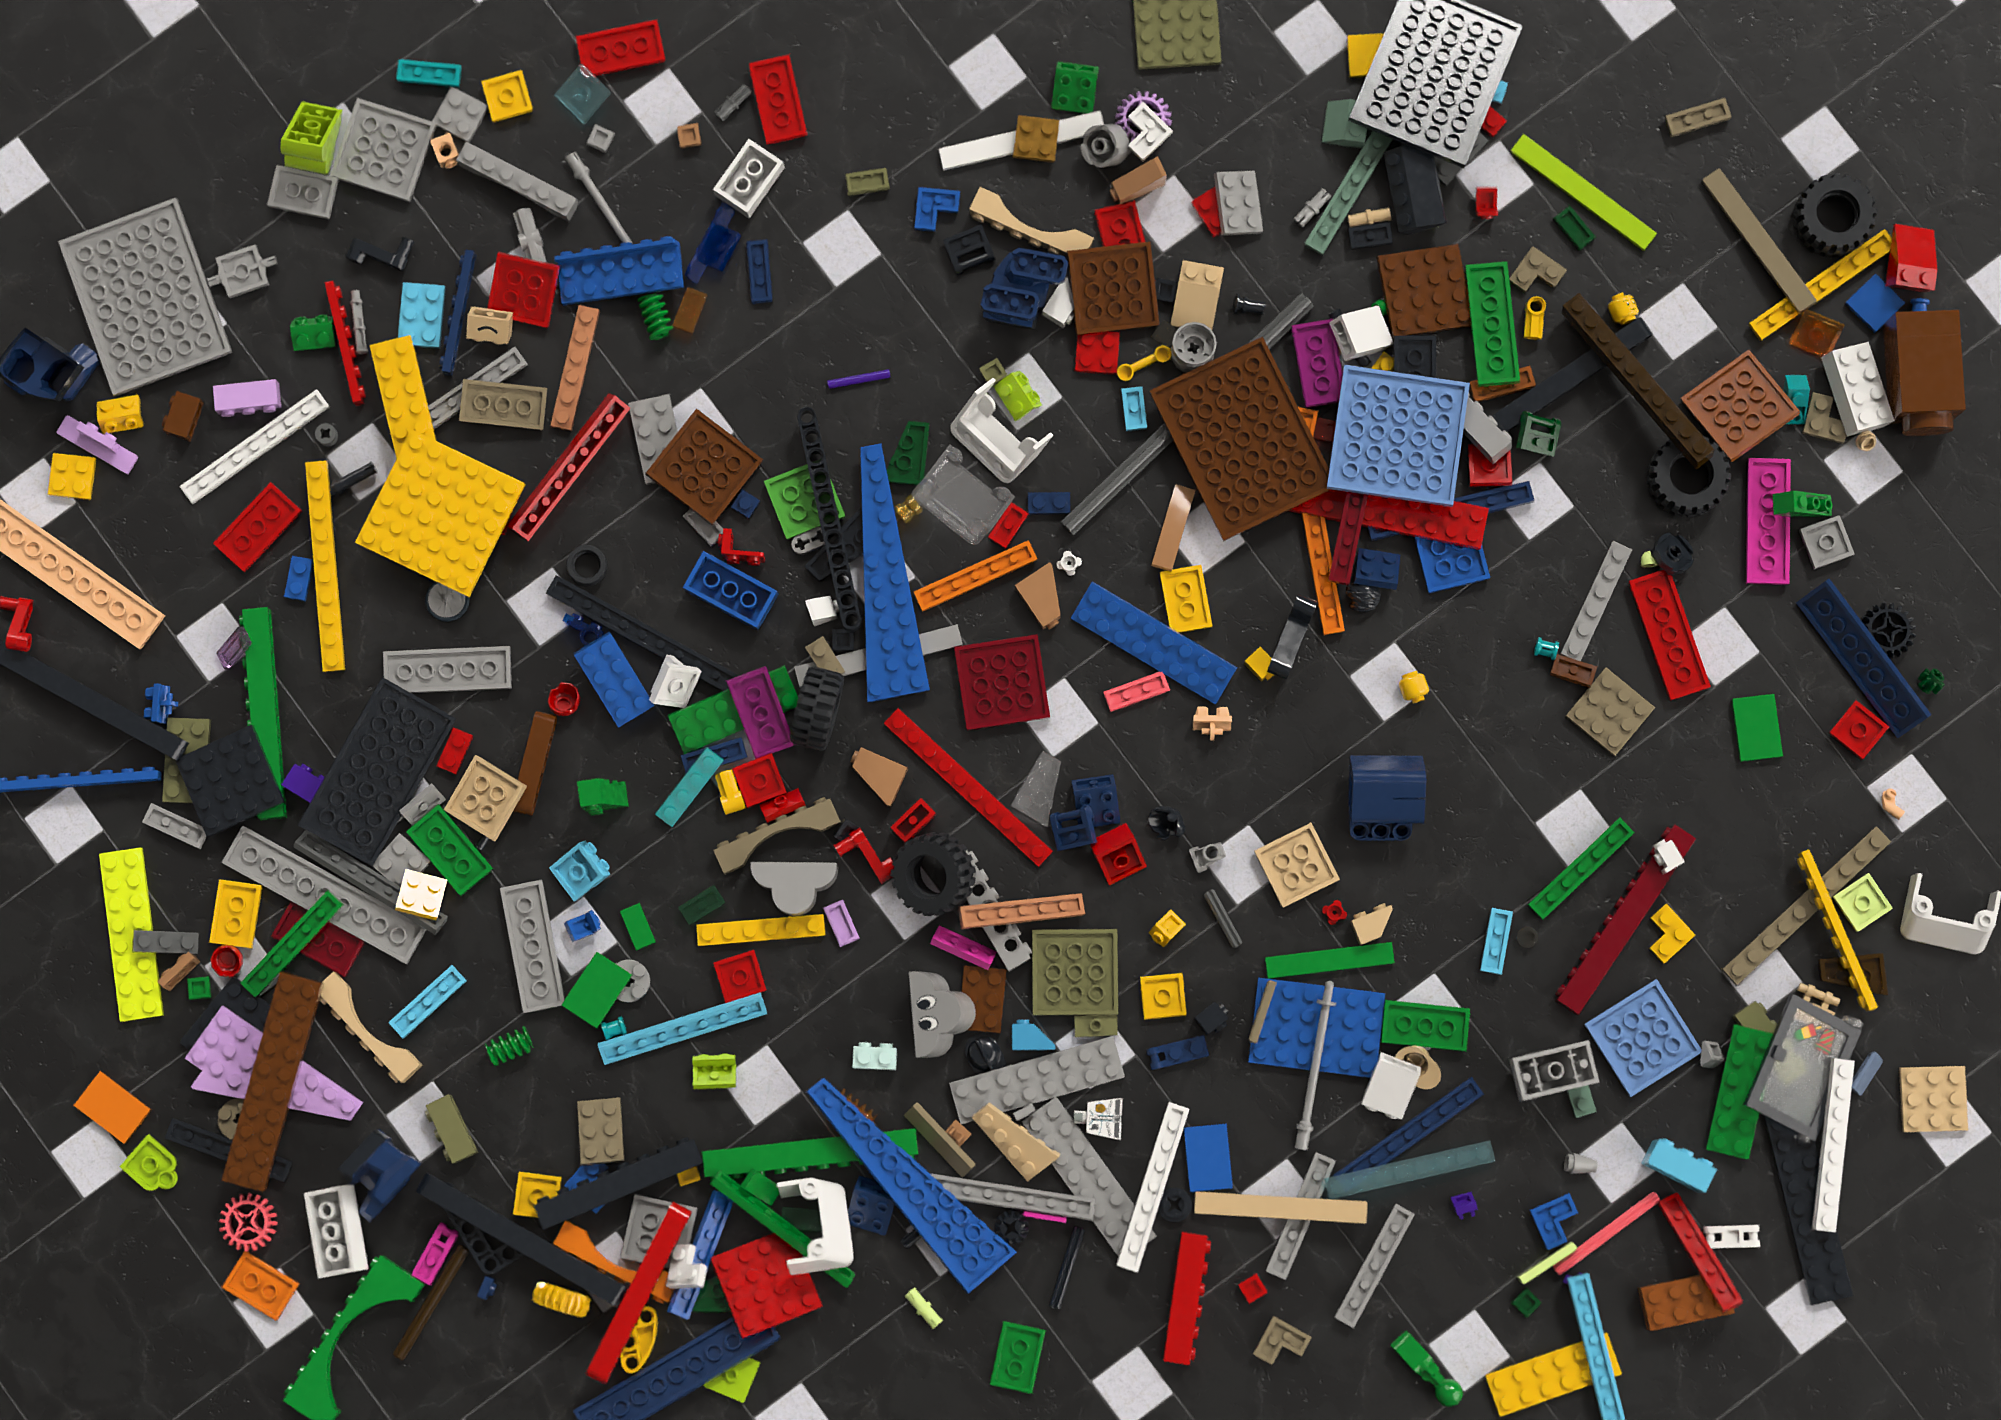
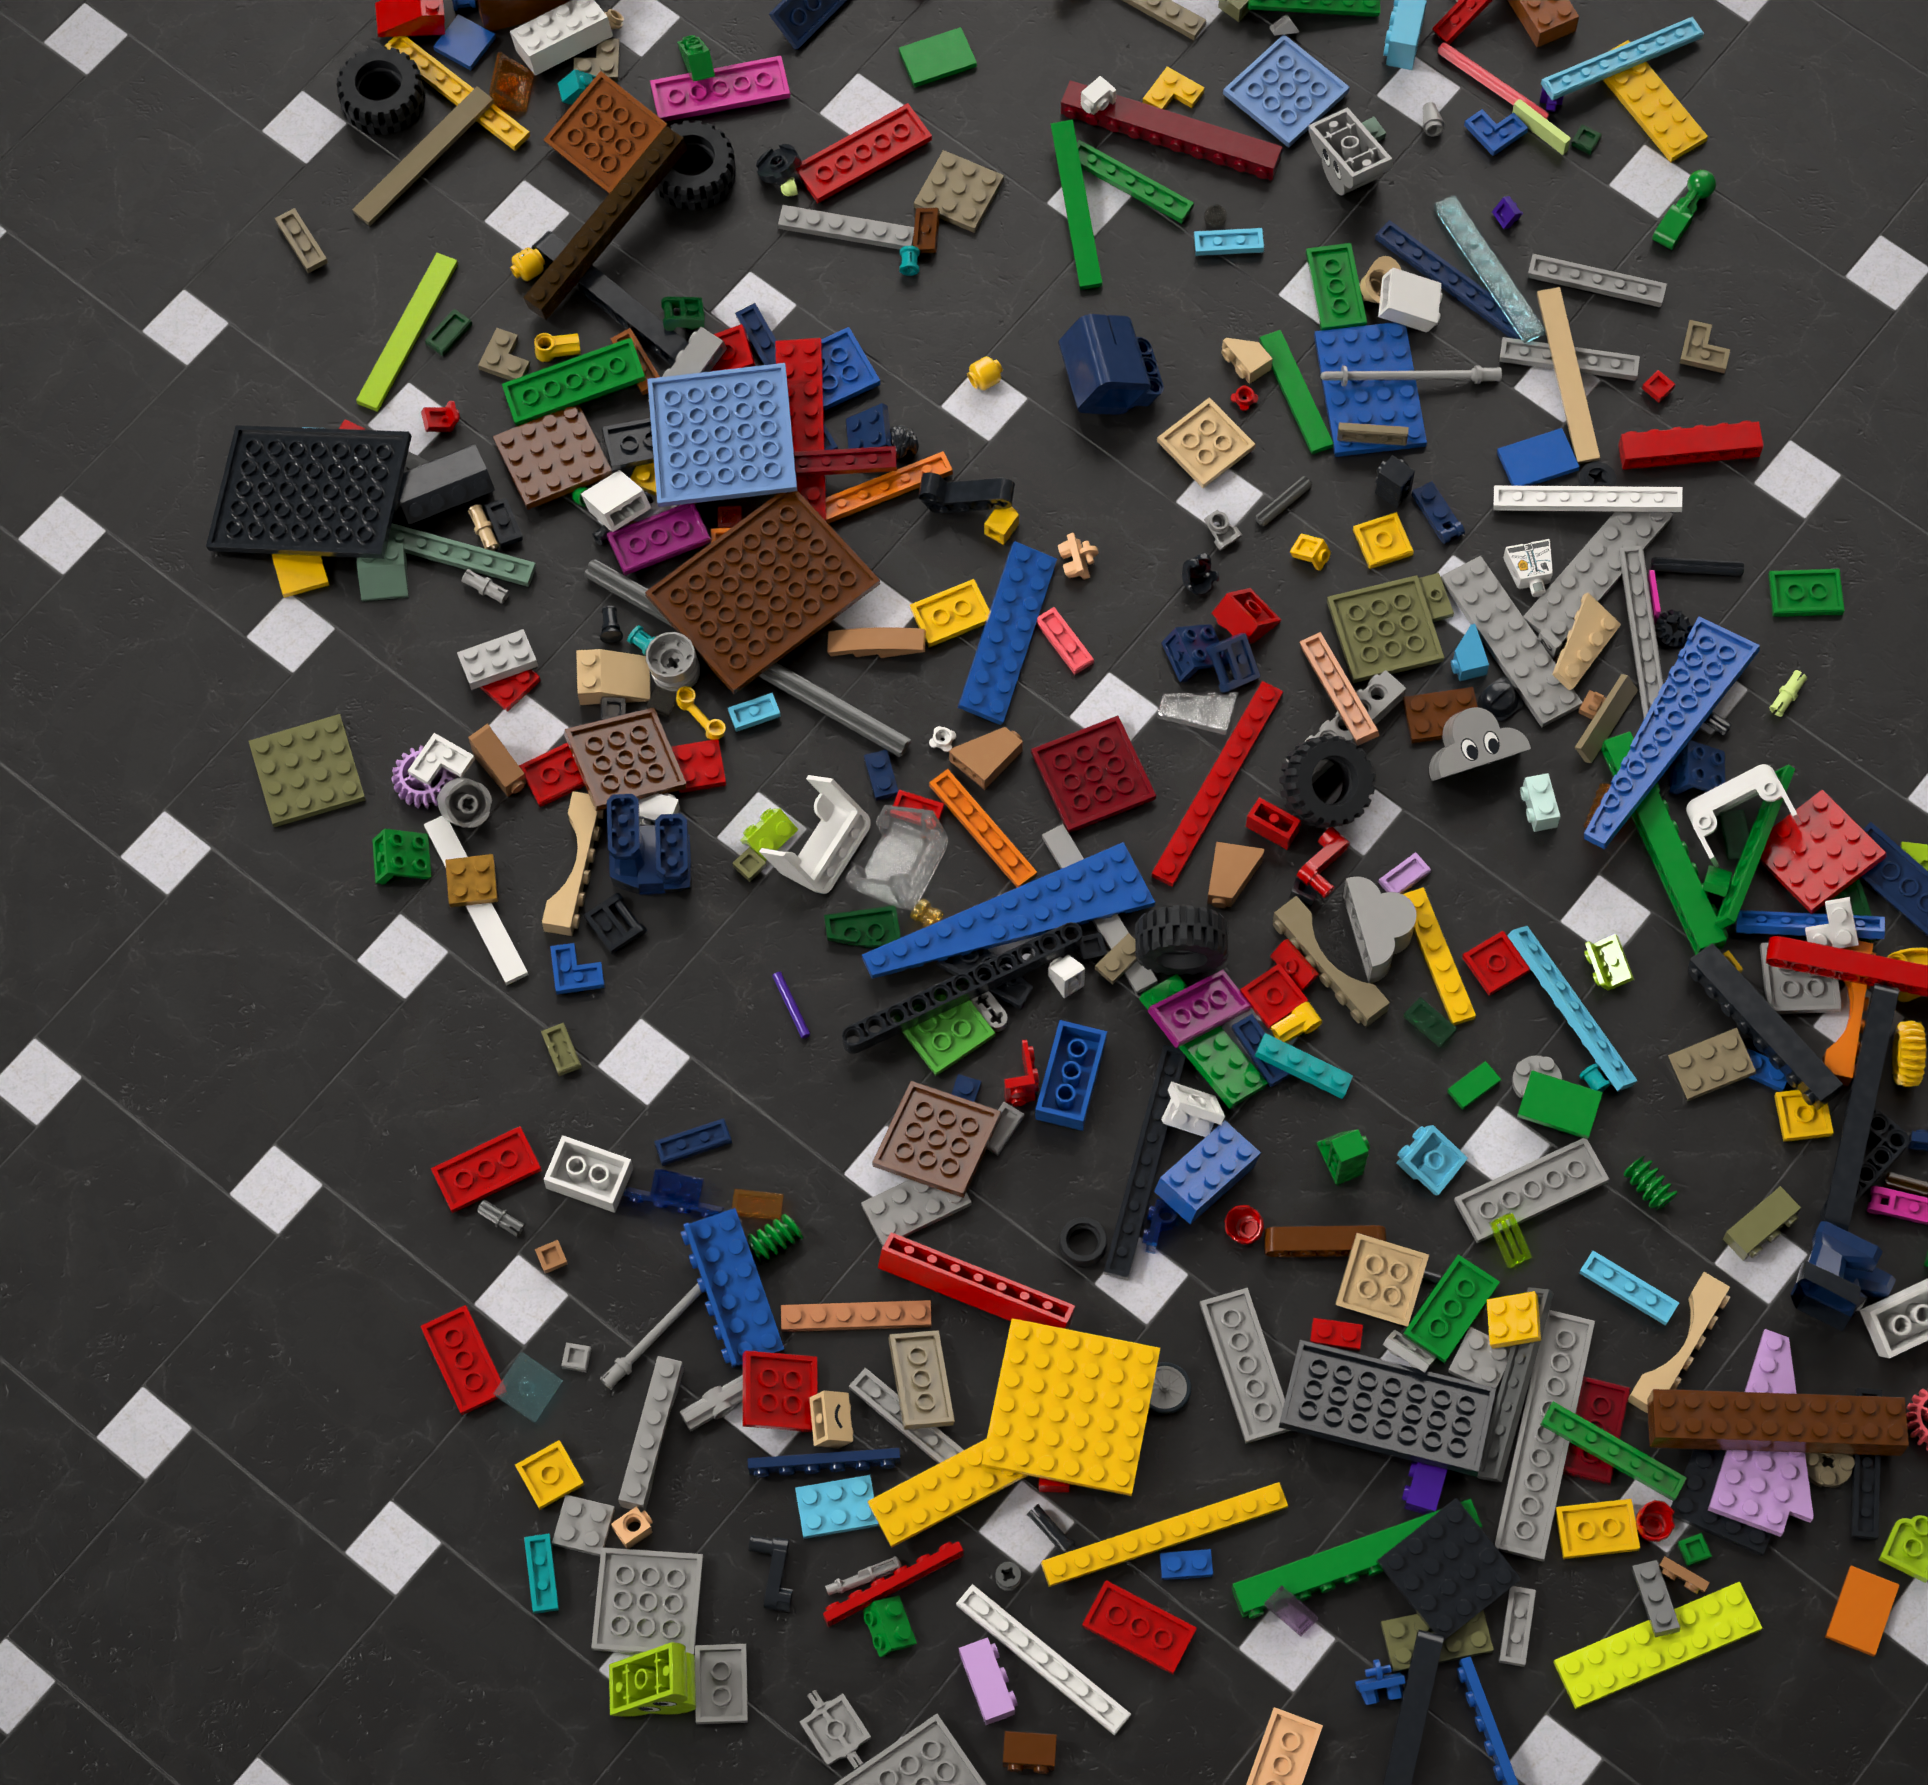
camera: 105 degrees left, 15 degrees down
(478, 917) = (1520, 1239): none -> clear neon green tile
(583, 926) = (1491, 1140): blue bracket -> none
(963, 947) = (1393, 743): dark pink plate -> none
(1226, 329) = (640, 638): none -> teal bush
(1567, 812) = (1076, 204): none -> green tile
(1826, 542) = (728, 33): light grey plate -> none

